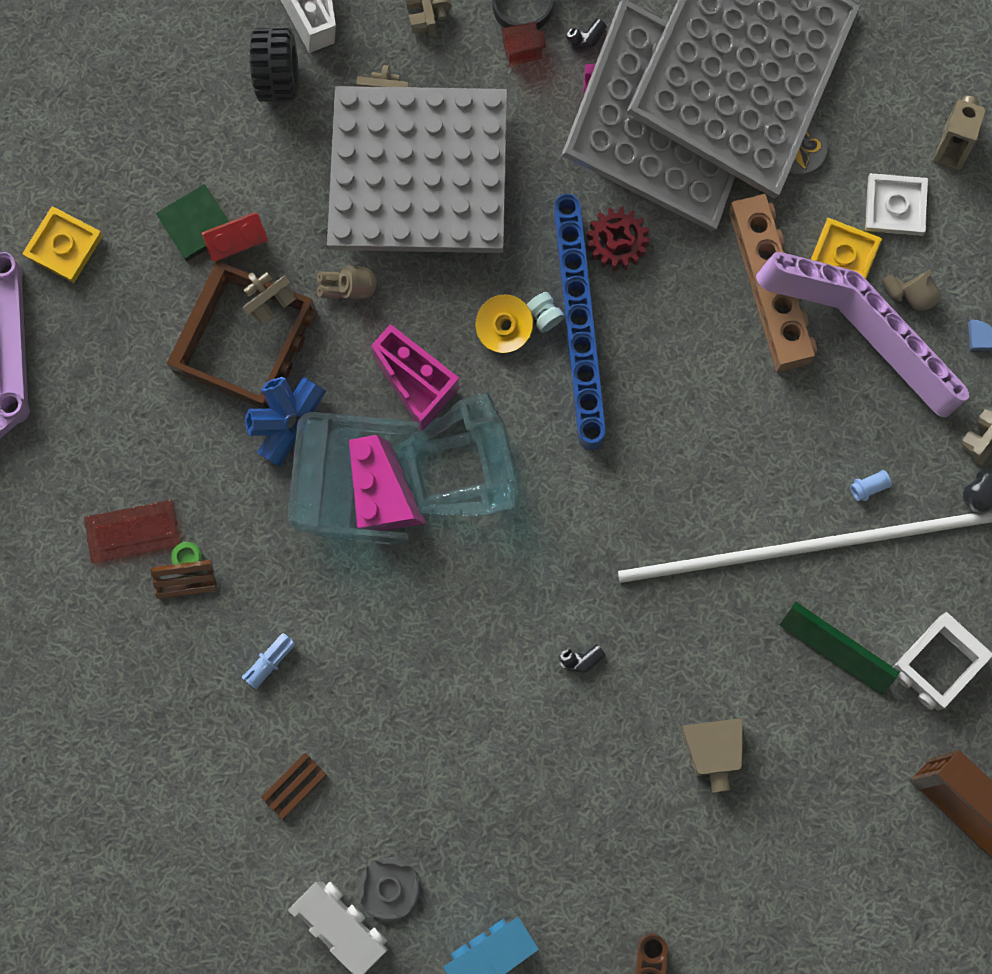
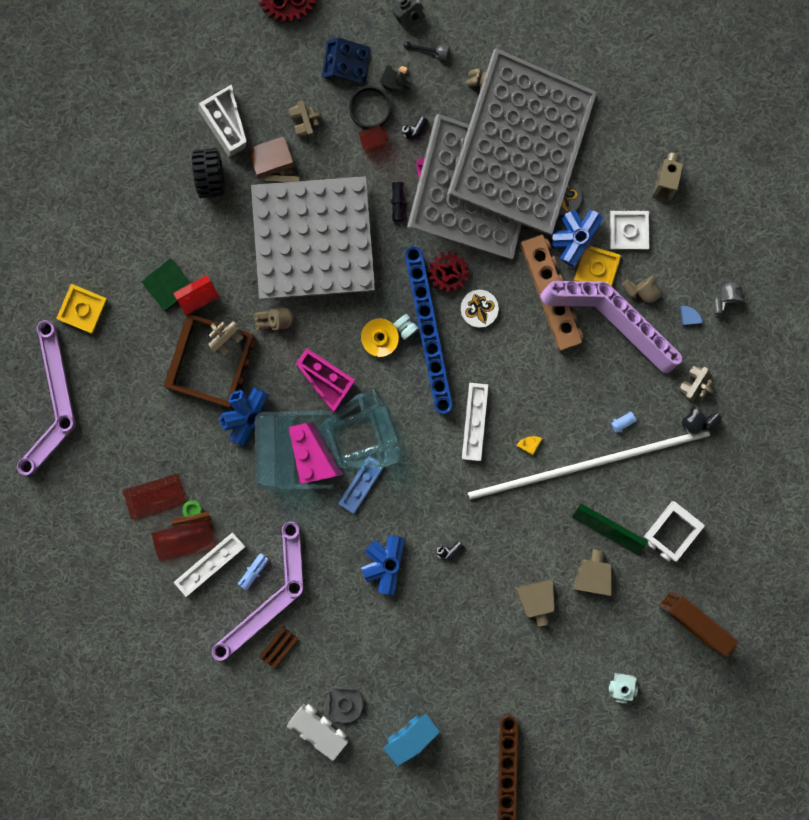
camera: 15 degrees left, 10 degrees up
(165, 601) = (183, 540): none -> clear red piece
(201, 642) = (209, 564): none -> white plate
(294, 715) = (275, 603): none -> lavender piece
(370, 55) = (271, 157): none -> tile
(451, 547) = (359, 488): none -> medium blue tile
(472, 657) = (379, 568): none -> blue piece
(551, 134) = (397, 201): none -> black pin
(638, 463) = (475, 421): none -> white plate
(660, 297) = (479, 308): none -> tile
(721, 506) = (529, 444): none -> yellow tile
(810, 719) = (594, 575): none -> dark tan torso
(816, 192) = (575, 229): none -> blue piece
(856, 901) = (620, 681): none -> light aqua brick

